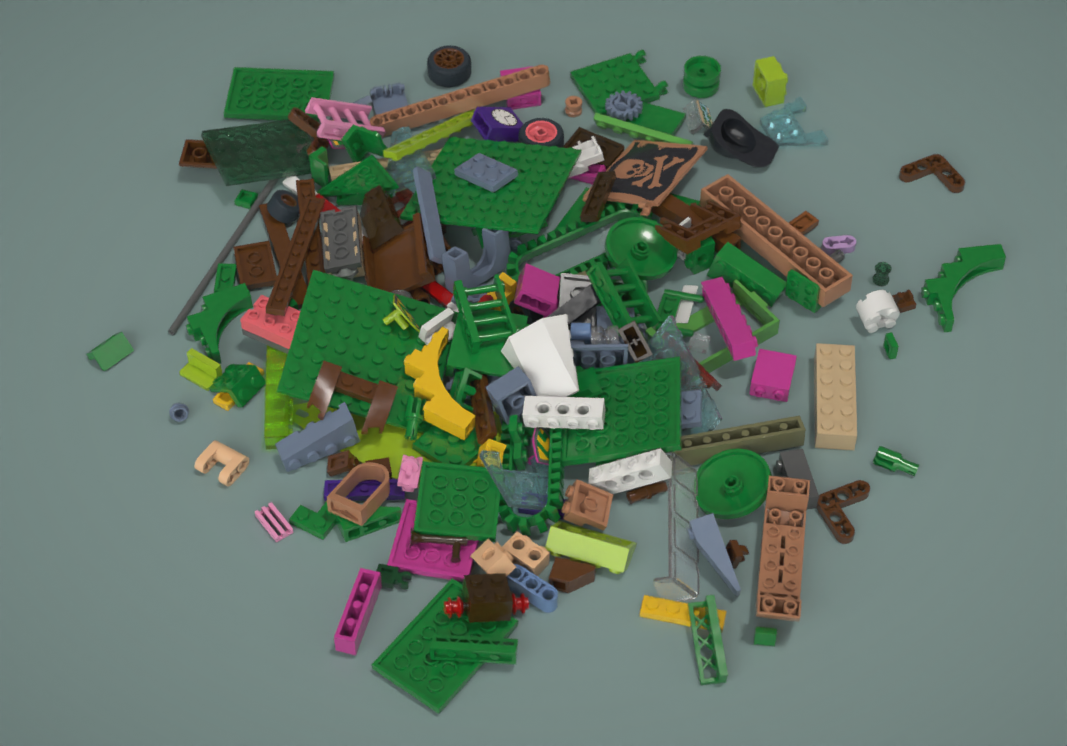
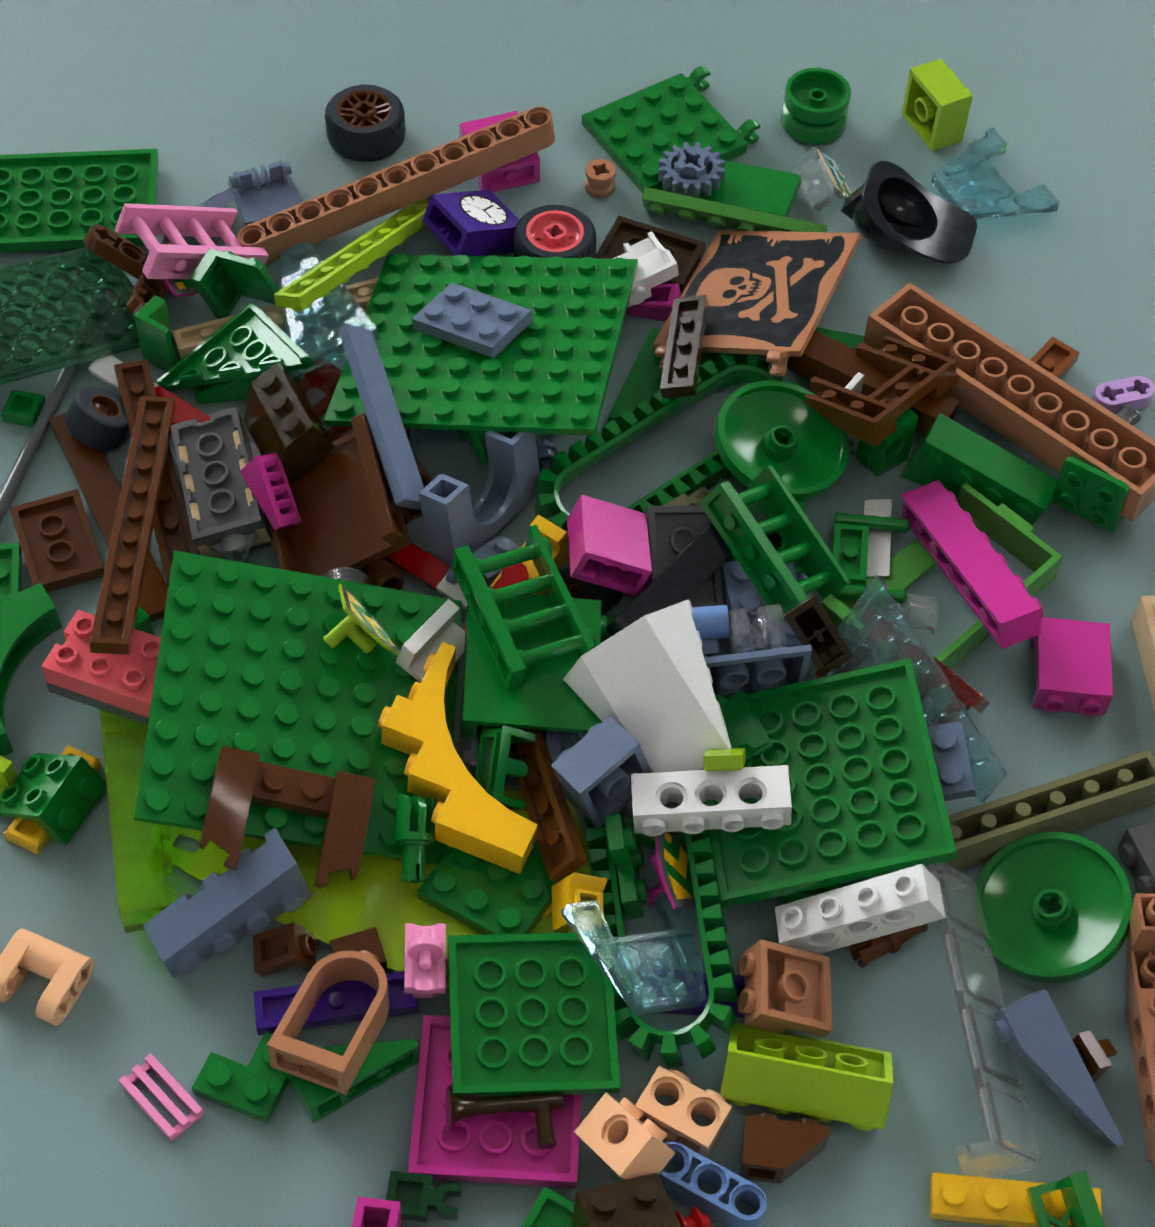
camera: 10 degrees left, 5 degrees up
(368, 249) = (271, 490): none -> dark pink slope
(573, 393) = (724, 759): none -> lime tile

